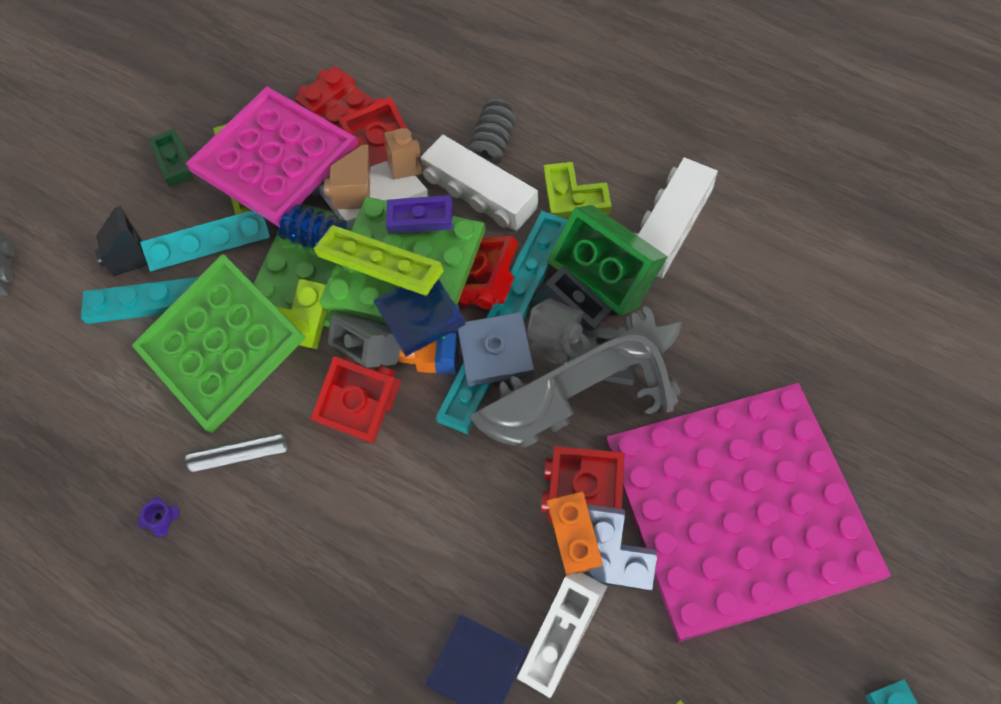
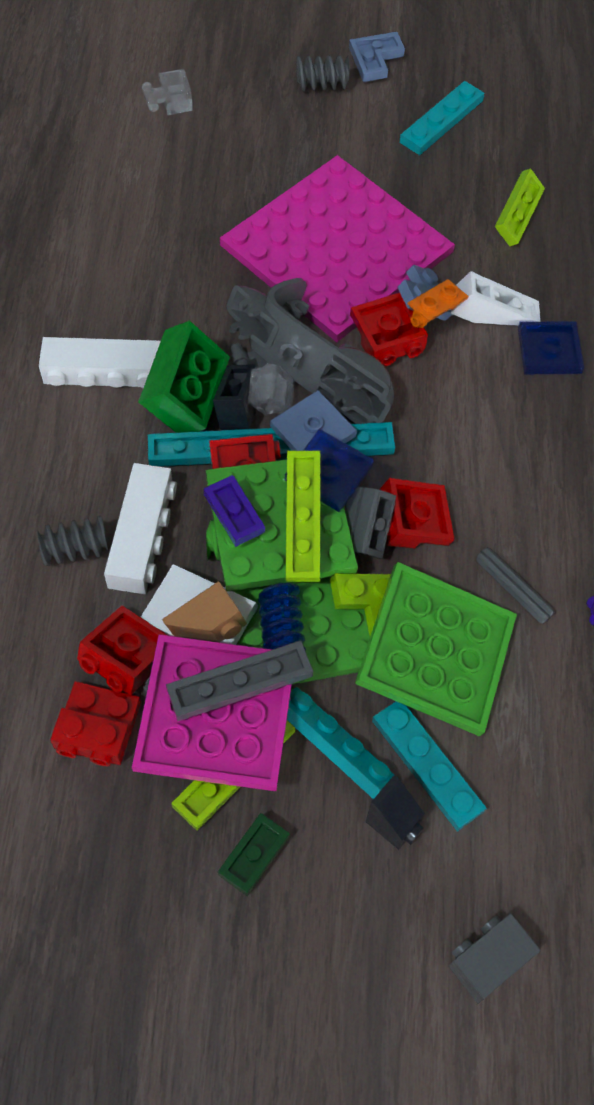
camera: 125 degrees left, 0 degrees up
(273, 166) = (239, 680): none -> dark grey plate
(402, 153) = (144, 591): medium nougat brick -> none
(565, 194) = (118, 449): lime plate -> none

